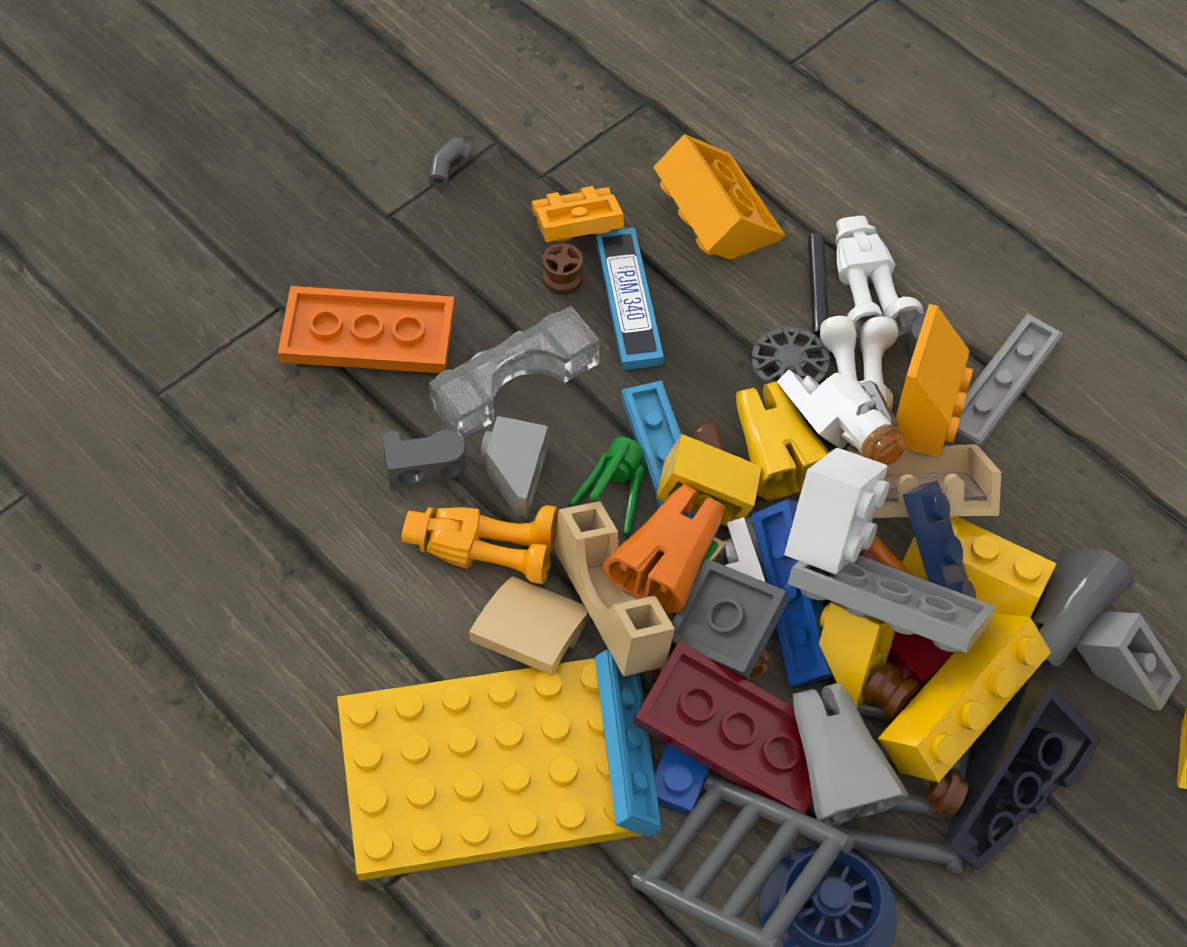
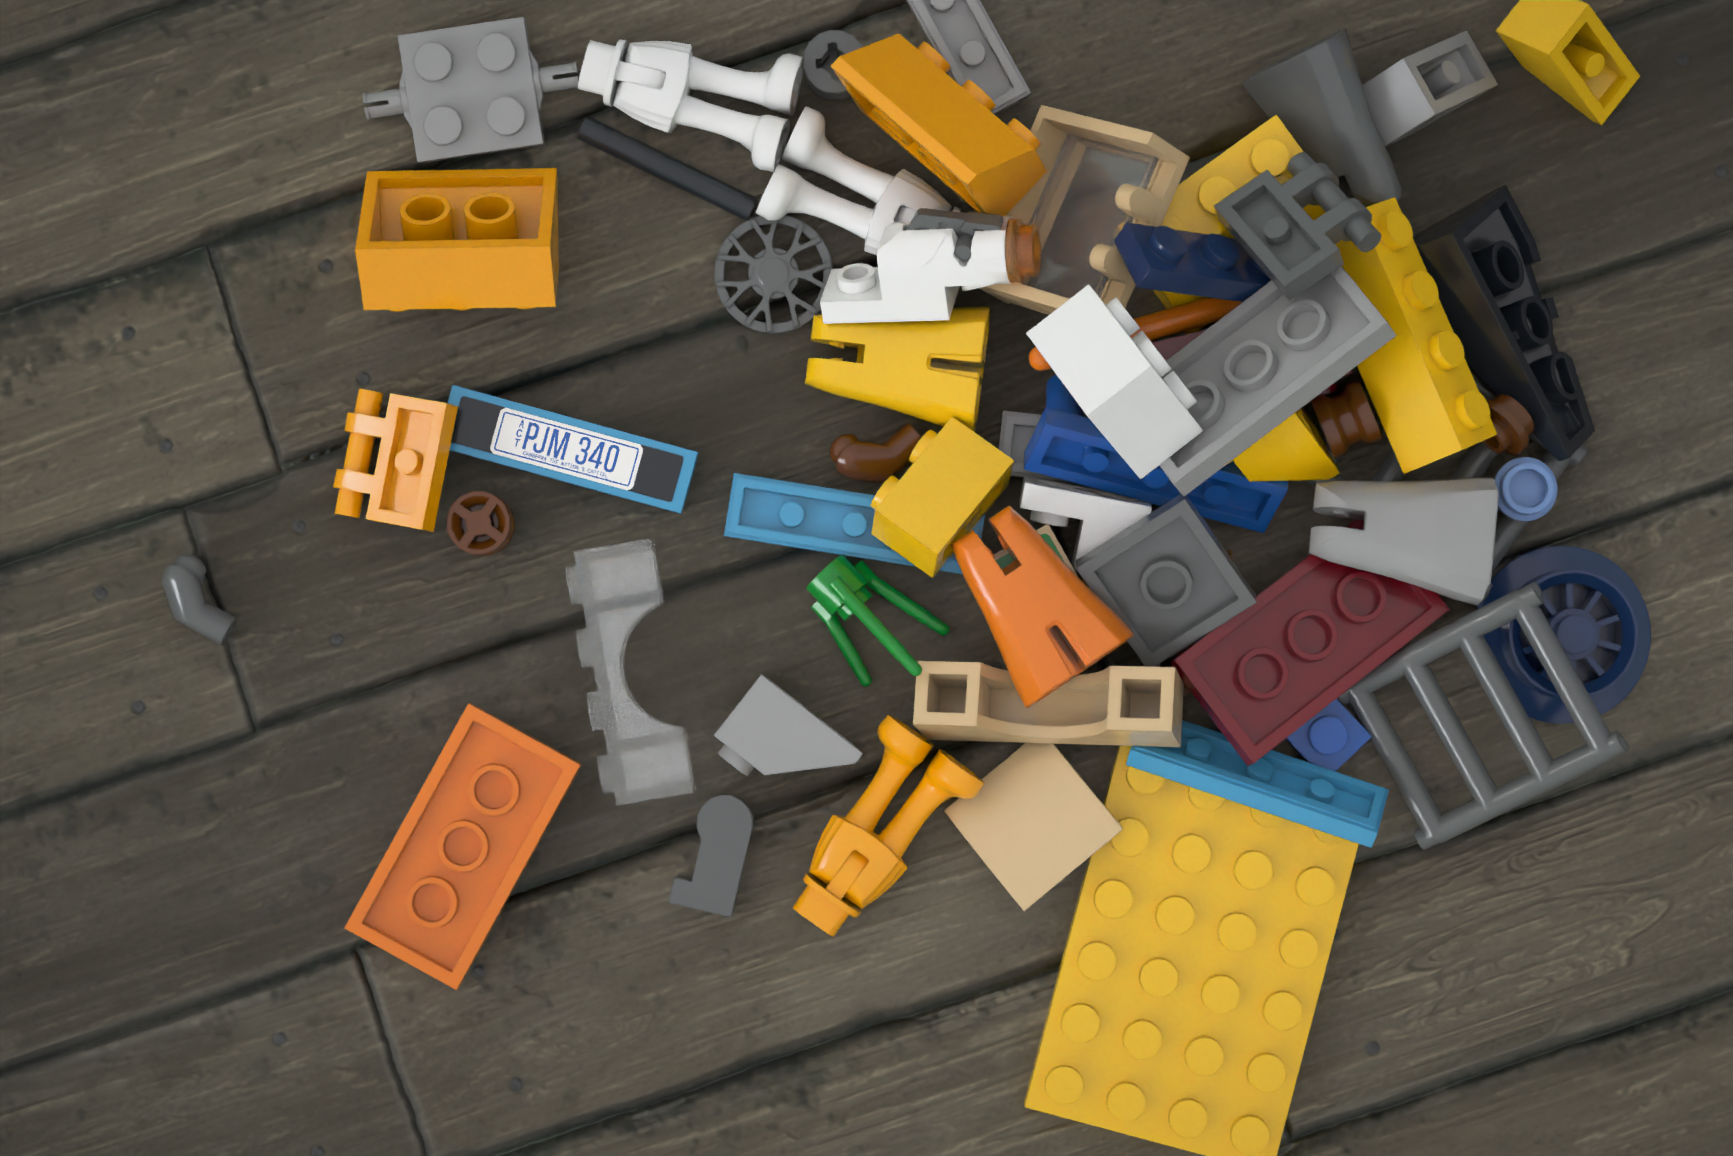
camera: 65 degrees left, 30 degrees up
(803, 179) = (471, 90): none -> light grey plate
(912, 830) = (1525, 489): none -> medium blue plate
(993, 578) = (1283, 237): none -> dark grey plate

